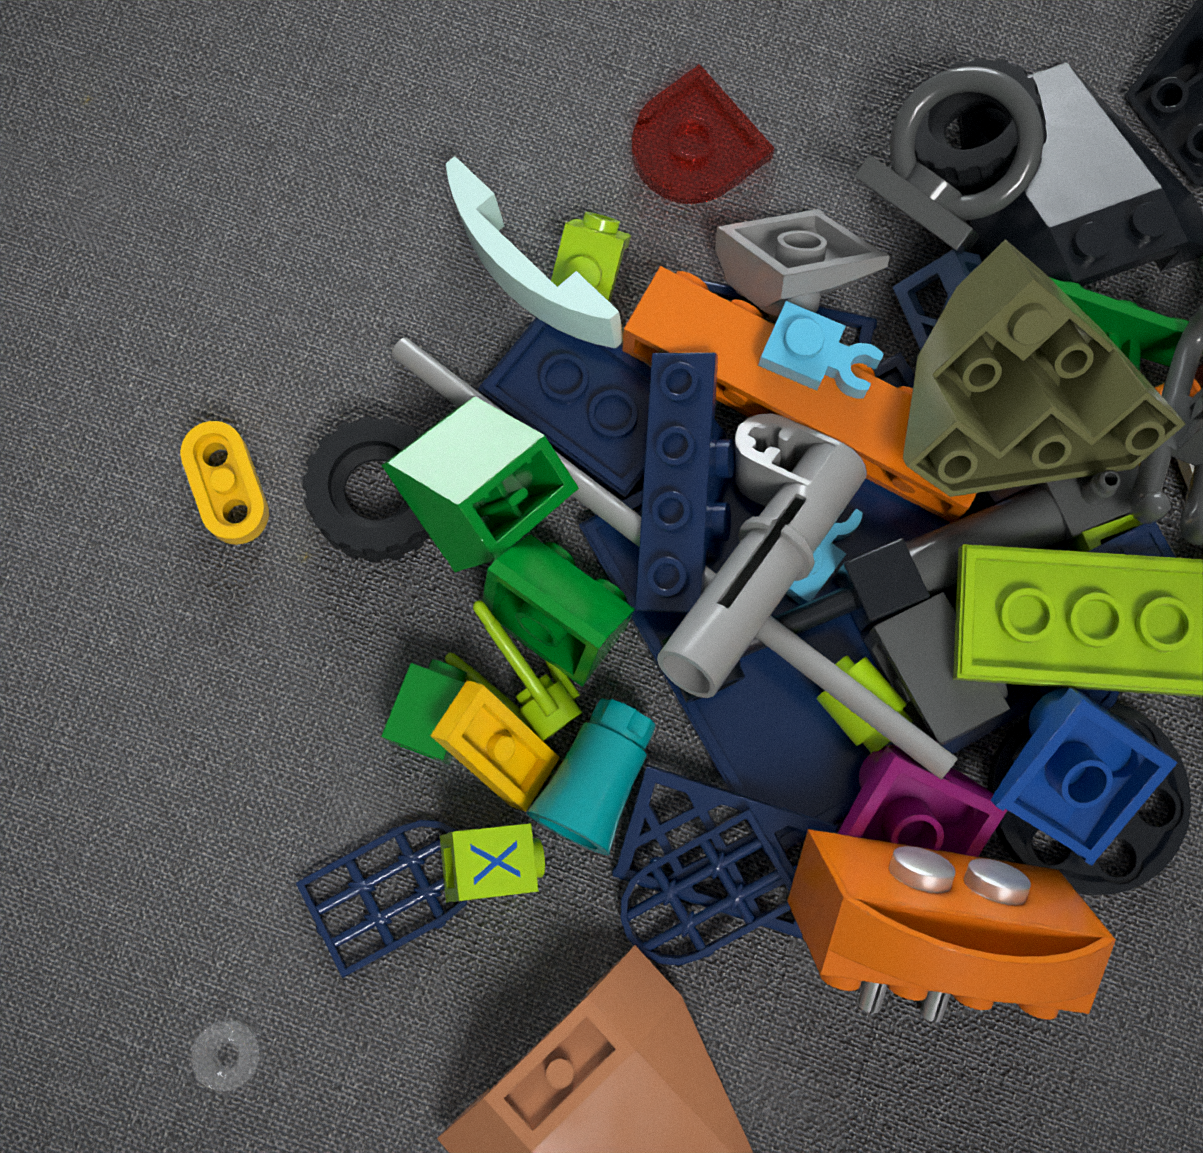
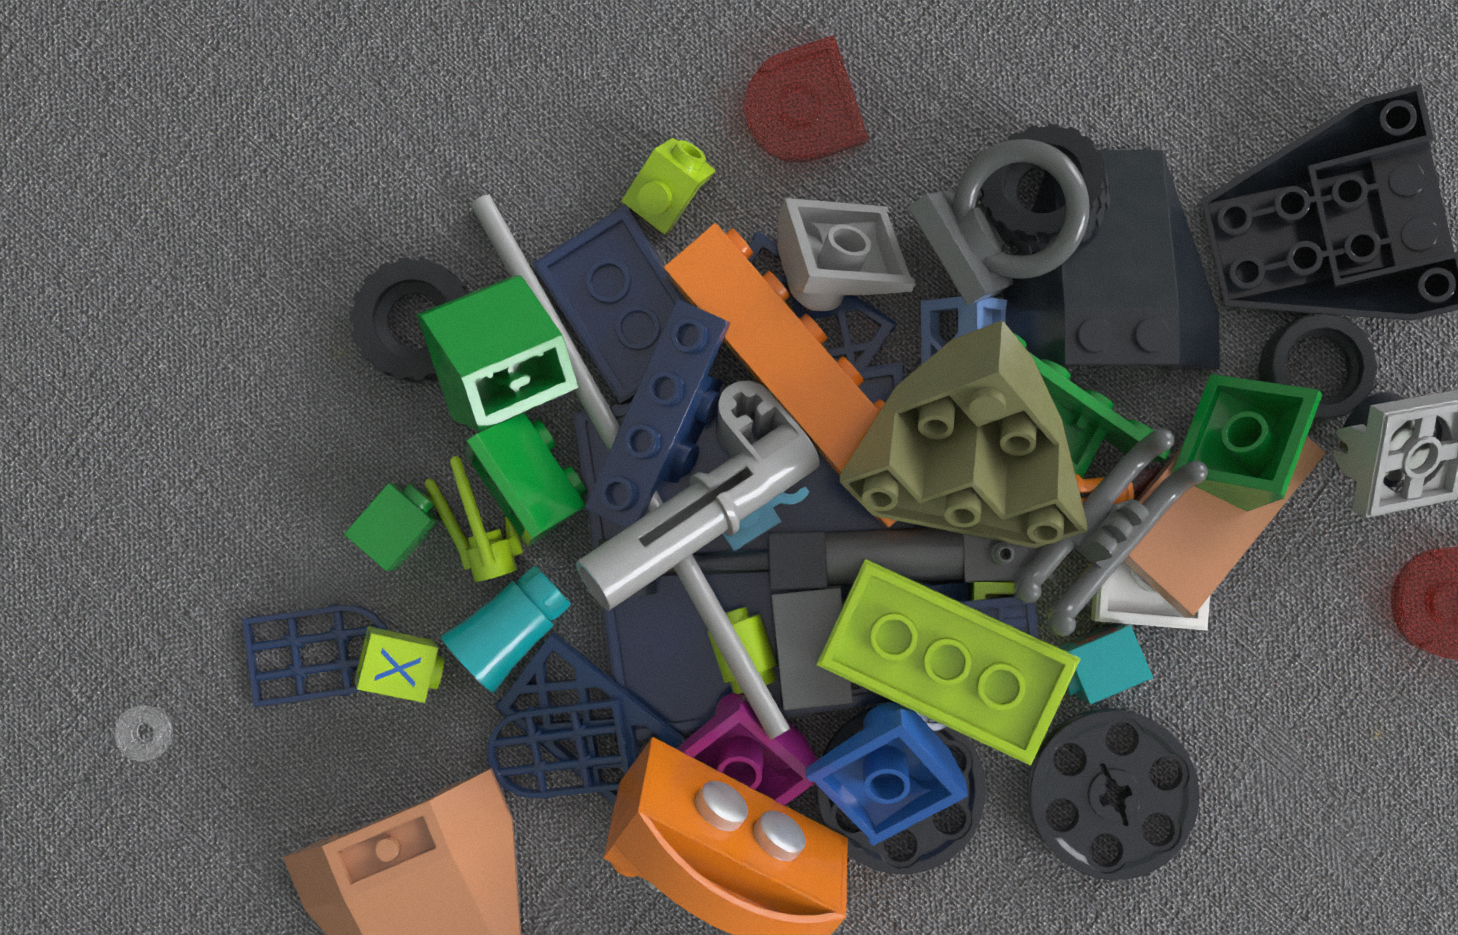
camera: 25 degrees right, 10 degrees up
(226, 485) = (292, 270): yellow plate -> none
(495, 745) = (433, 575): yellow plate -> none
(570, 308) = (587, 113): light aqua slope -> none
(808, 347) = (809, 343): medium azure plate -> none

